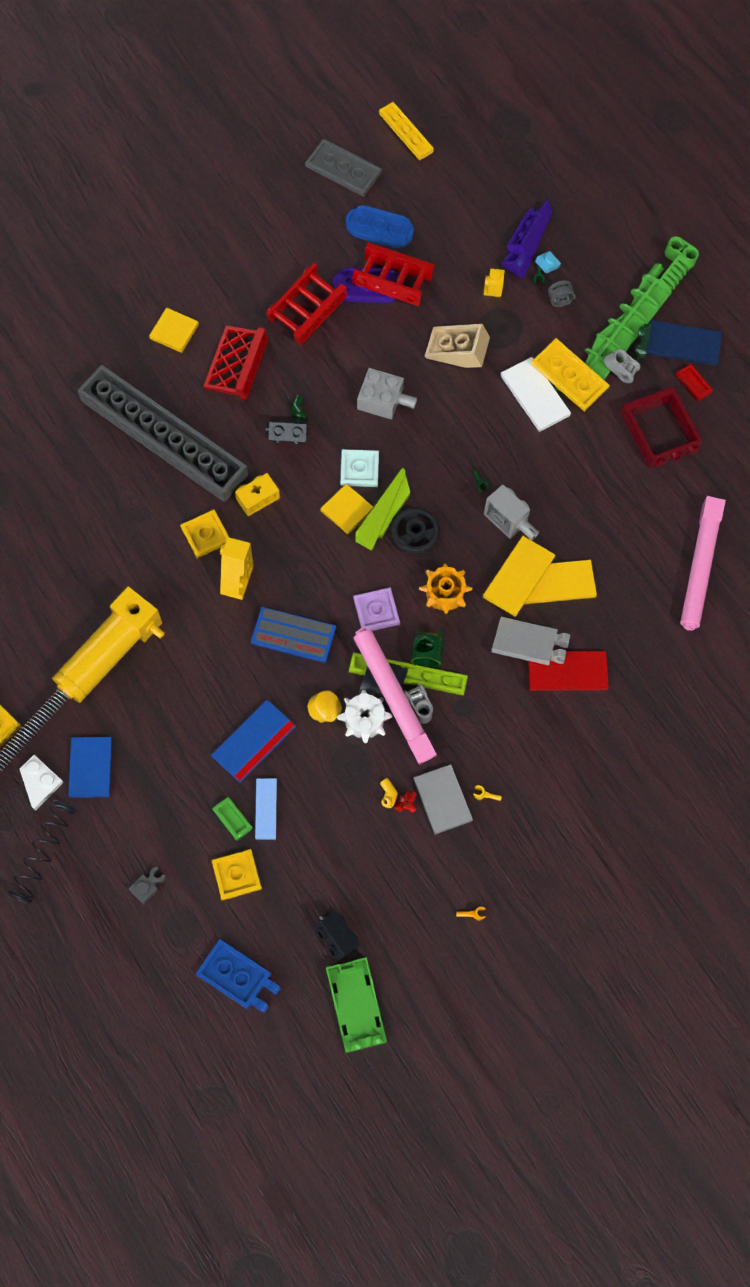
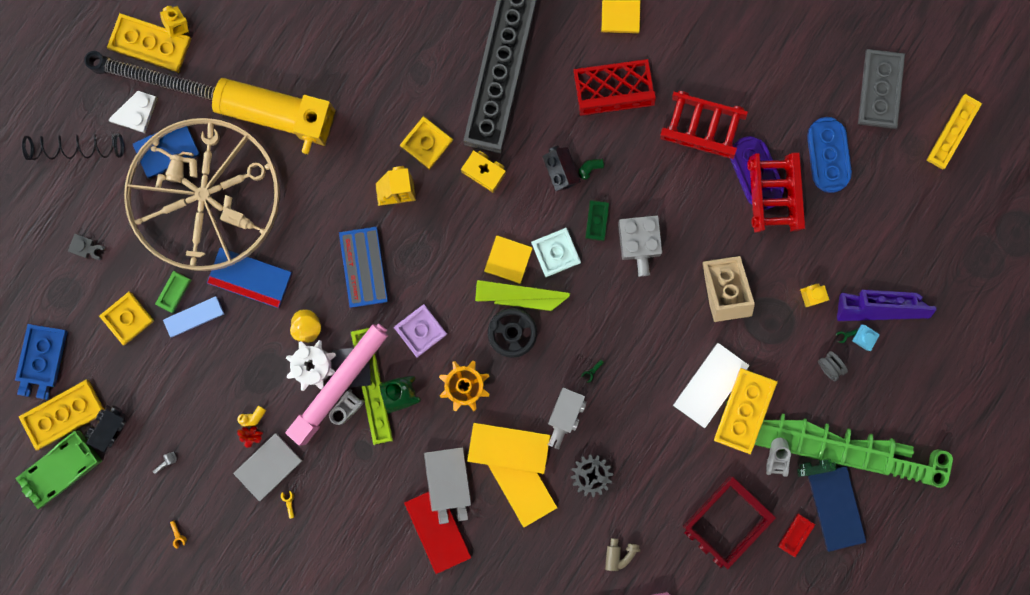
camera: 75 degrees right, 15 degrees up
(152, 747) = (176, 174): none -> tan piece
(302, 979) = (61, 414): none -> yellow tile
(348, 422) = (597, 220): none -> dark green plate
(394, 889) = (169, 458): none -> flat silver hand
(573, 526) = (583, 472): none -> dark grey gear
(652, 531) = (613, 560): none -> dark tan plant

